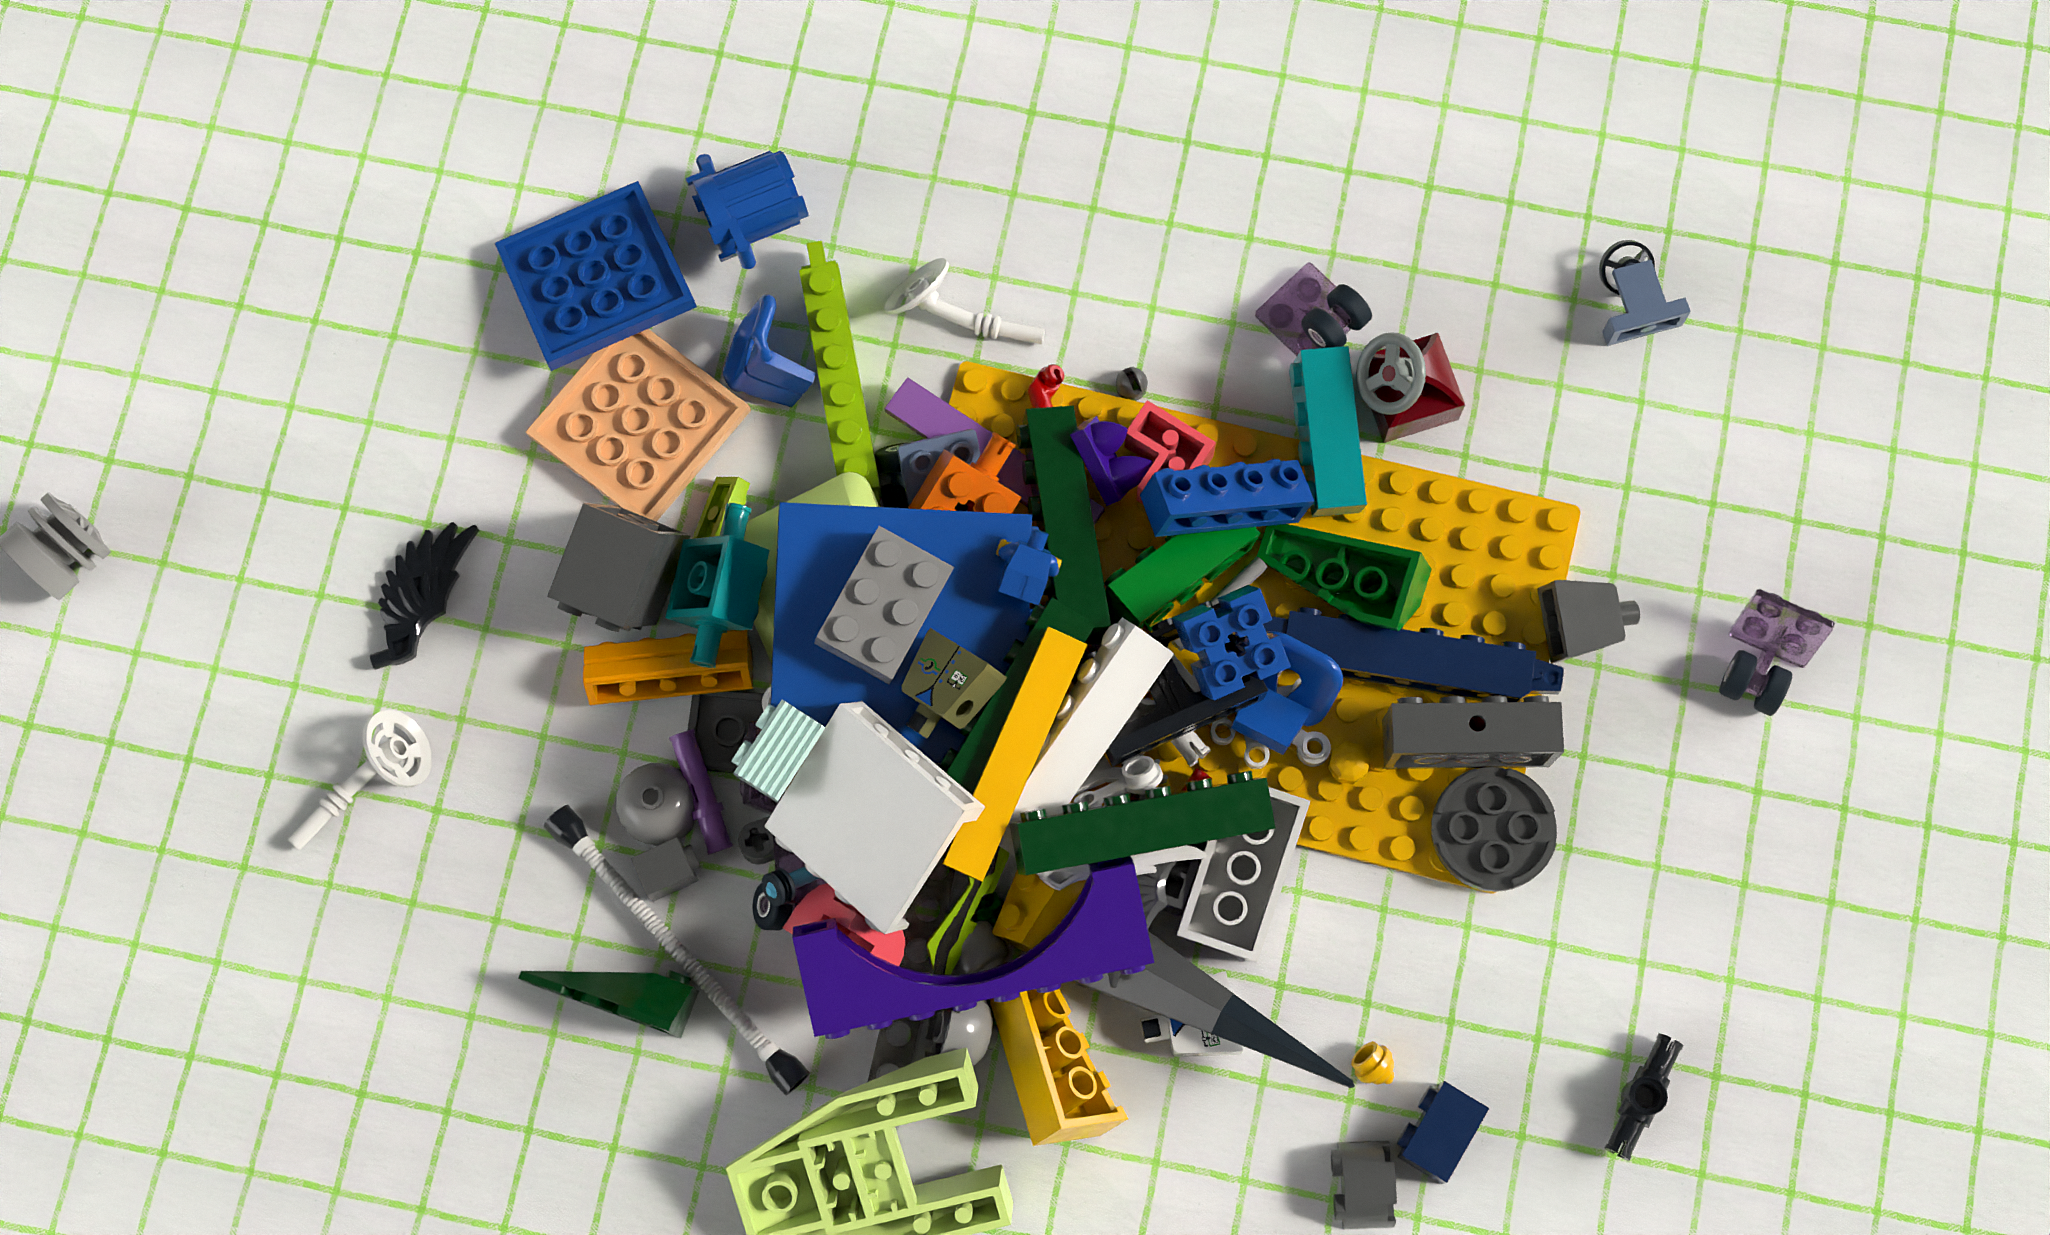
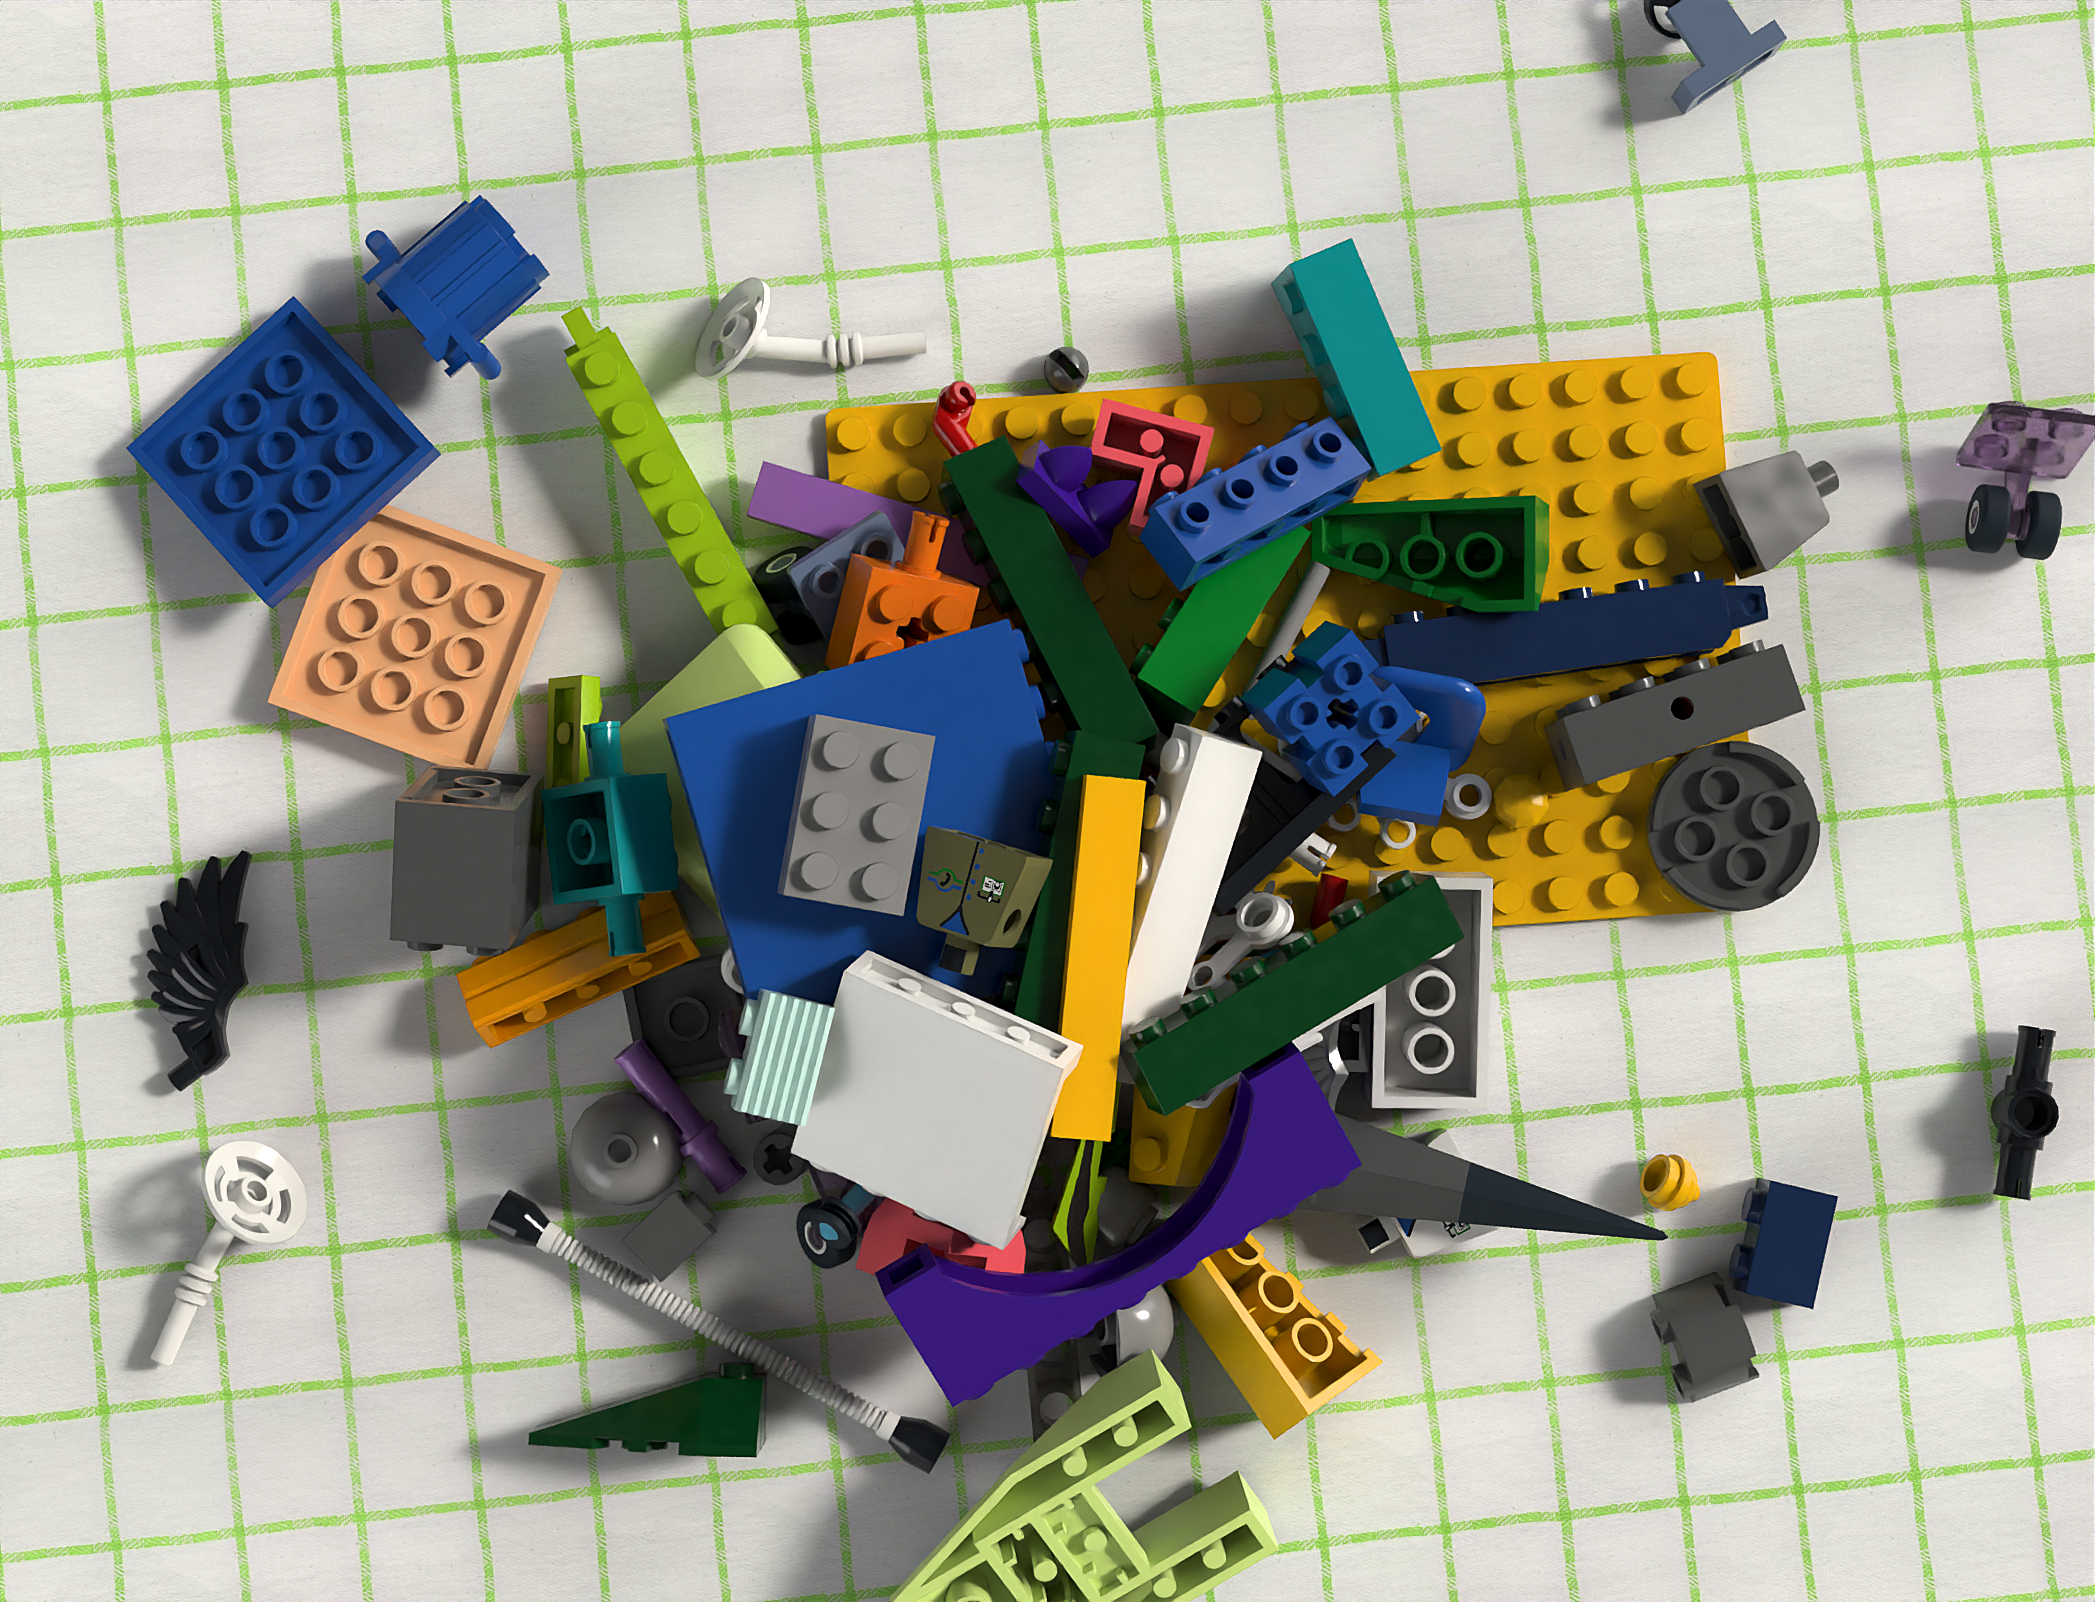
camera: 30 degrees left, 10 degrees up
(760, 369) = (565, 517): blue piece -> none
(1026, 567) = (1027, 699): blue piece -> none
(1313, 311) = (1283, 197): clear purple plate -> none
(1408, 384) = (1442, 259): piece -> none

